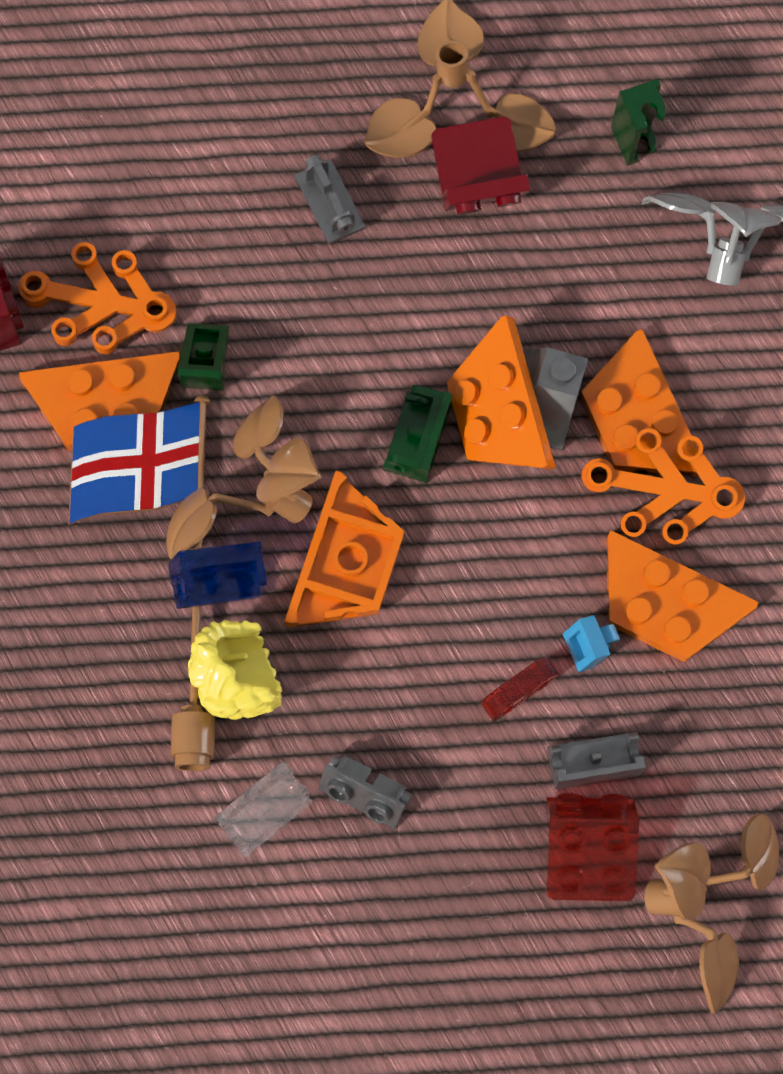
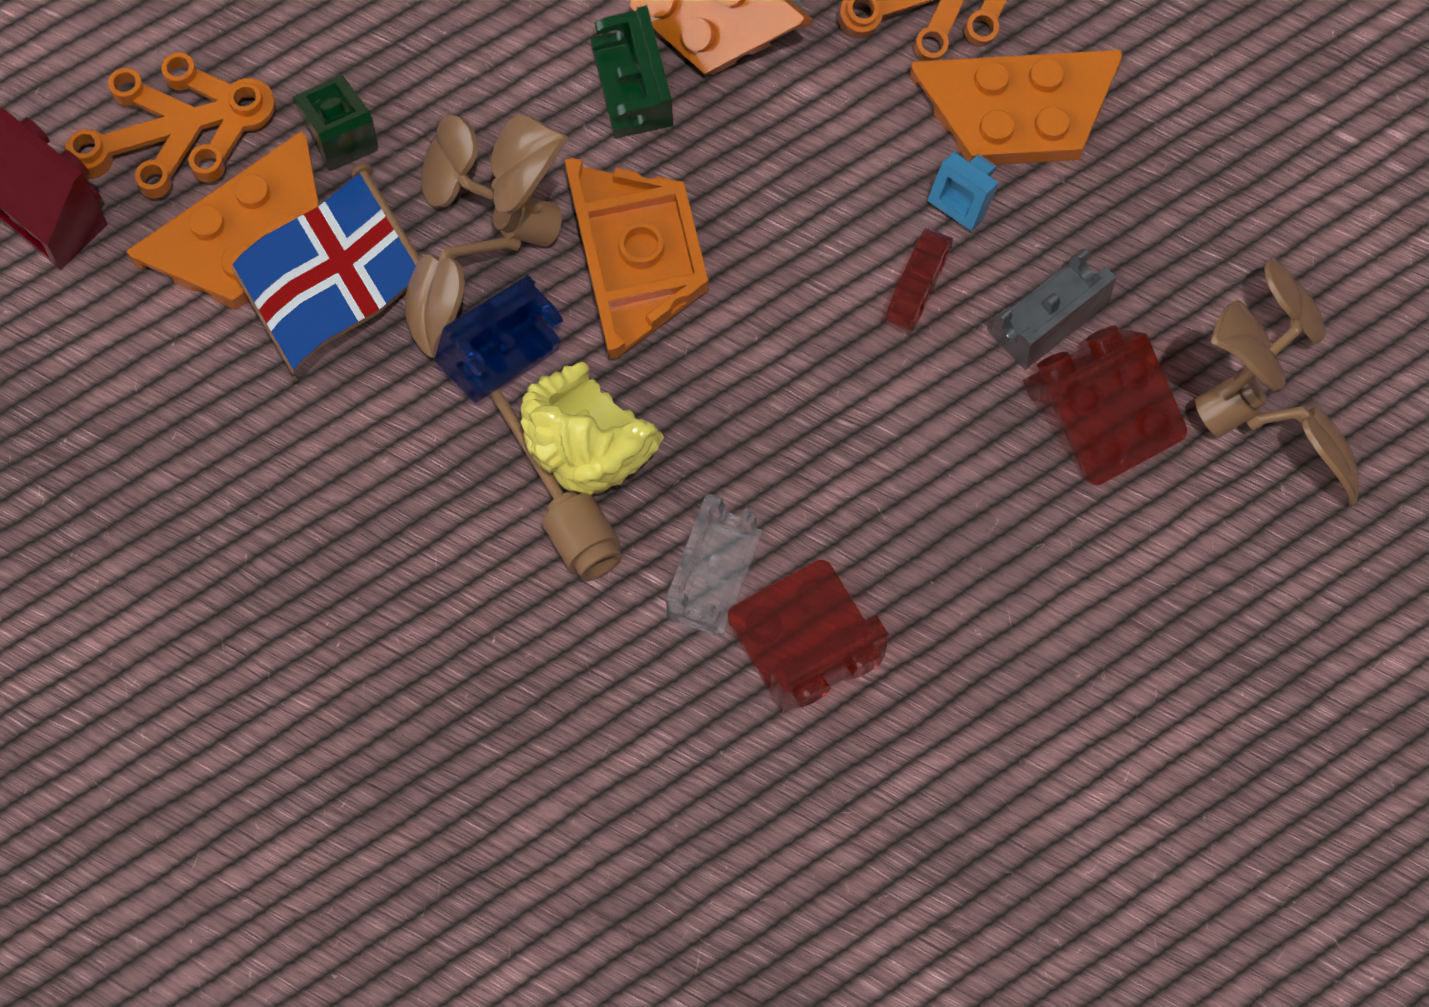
camera: 25 degrees left, 5 degrees down
(295, 890) = (807, 635): none -> clear red bracket
(346, 783) = (837, 486): flat silver hinge -> none

